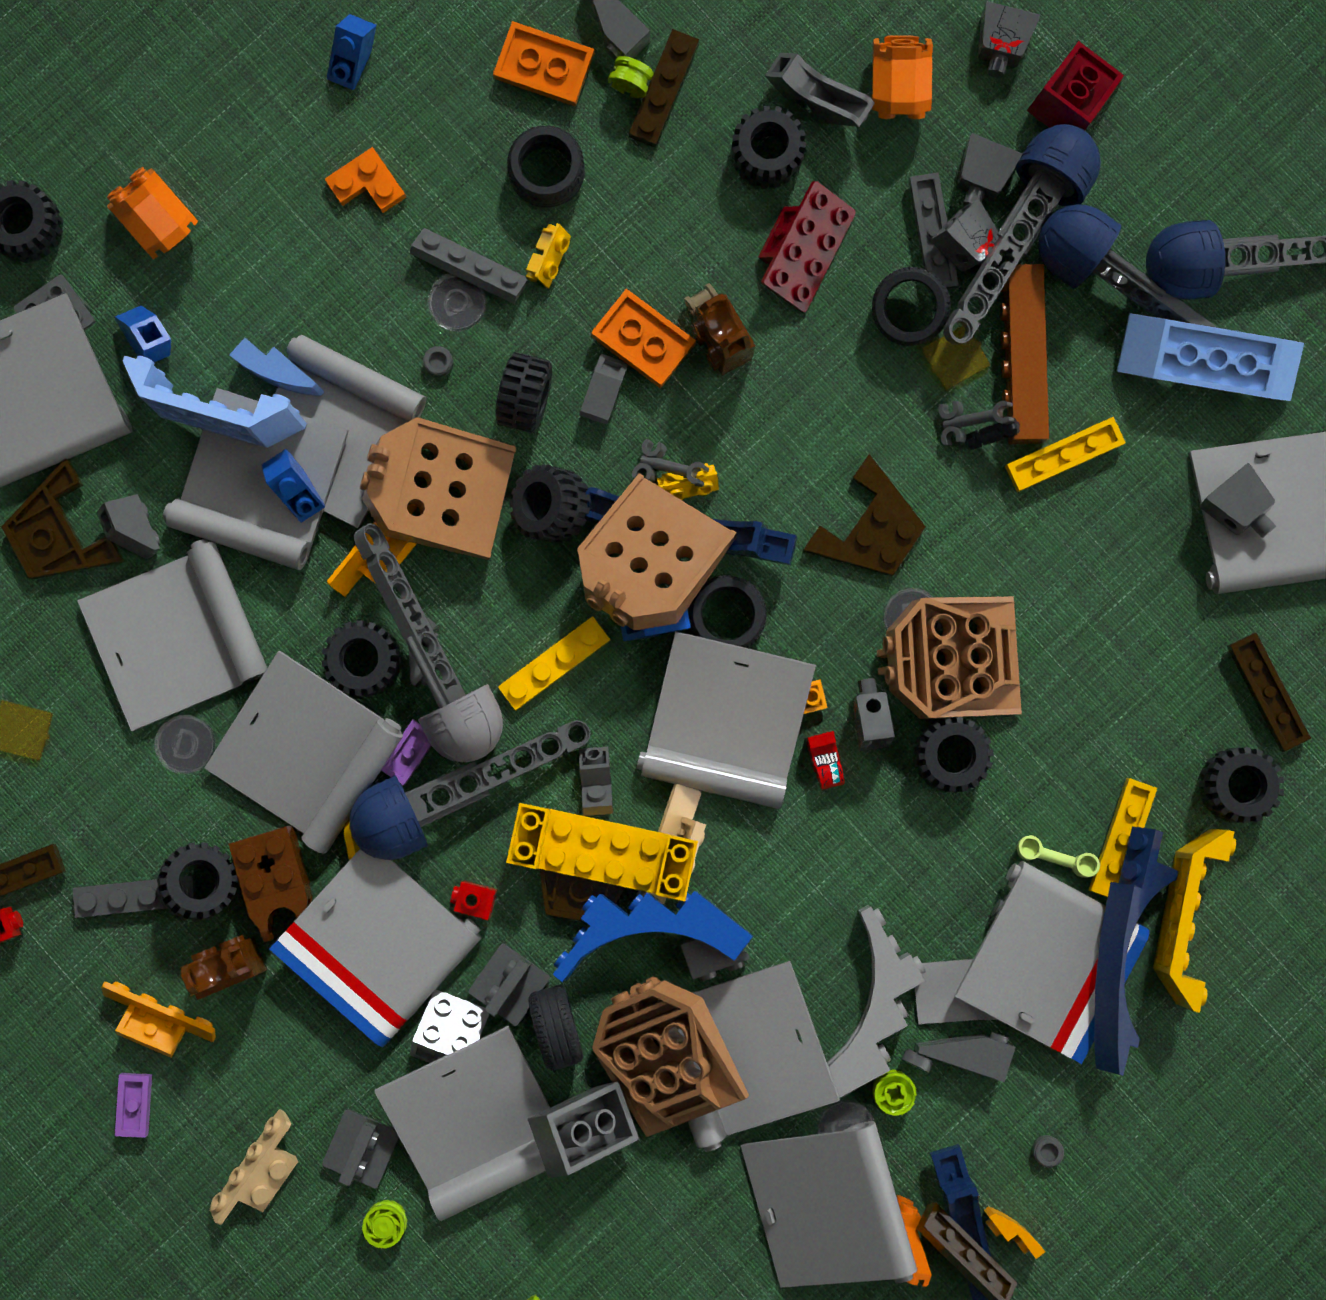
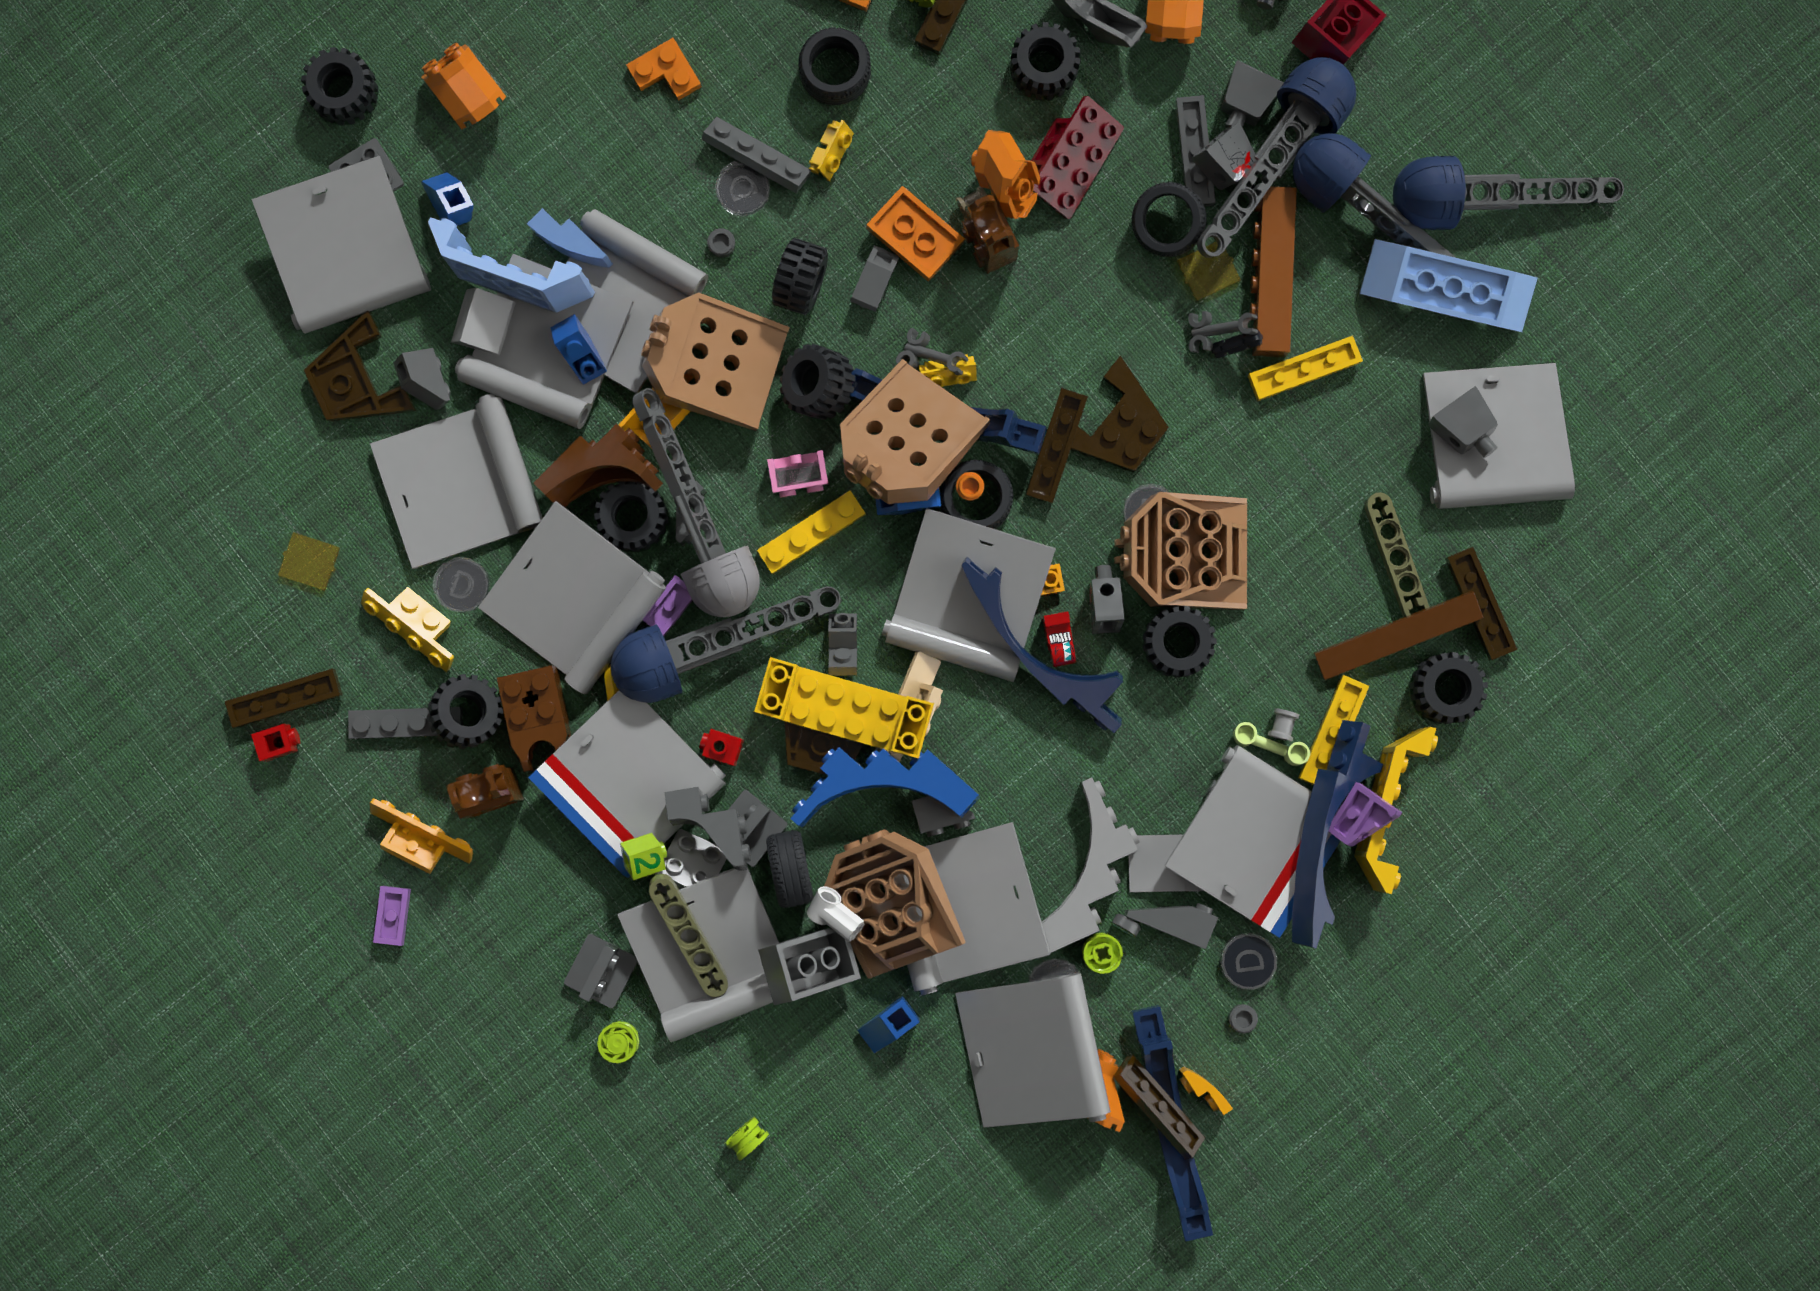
camera: 10 degrees right, 0 degrees up
(137, 787) = (414, 621): none -> yellow bracket
(190, 462) = (483, 321): none -> light grey slope
(259, 1173) = (505, 987): tan bracket -> none
(319, 607) = (595, 464): none -> reddish brown arch
(398, 1025) = (643, 856): none -> lime brick
(451, 1093) = (685, 922): none -> olive beam
(481, 990) = (724, 827): none -> dark grey arch
(536, 601) = (798, 473): none -> bright pink window
(600, 1070) = (828, 909): none -> white piece
(673, 1185) = (889, 1025): none -> blue slope
(720, 604) = (969, 486): none -> orange plate
(736, 269) = (1006, 173): none -> orange brick
(809, 554) = (1057, 445): none -> dark brown plate
(860, 814) = (1086, 690): none -> dark blue slope
(1049, 1089) = (1248, 961): none -> black tile
(1069, 835) = (1283, 725): none -> light grey bush
(1162, 930) = (1361, 815): none -> medium lavender wing
(1184, 731) = (1398, 635): none -> reddish brown tile
(1188, 658) = (1397, 543): none -> olive beam

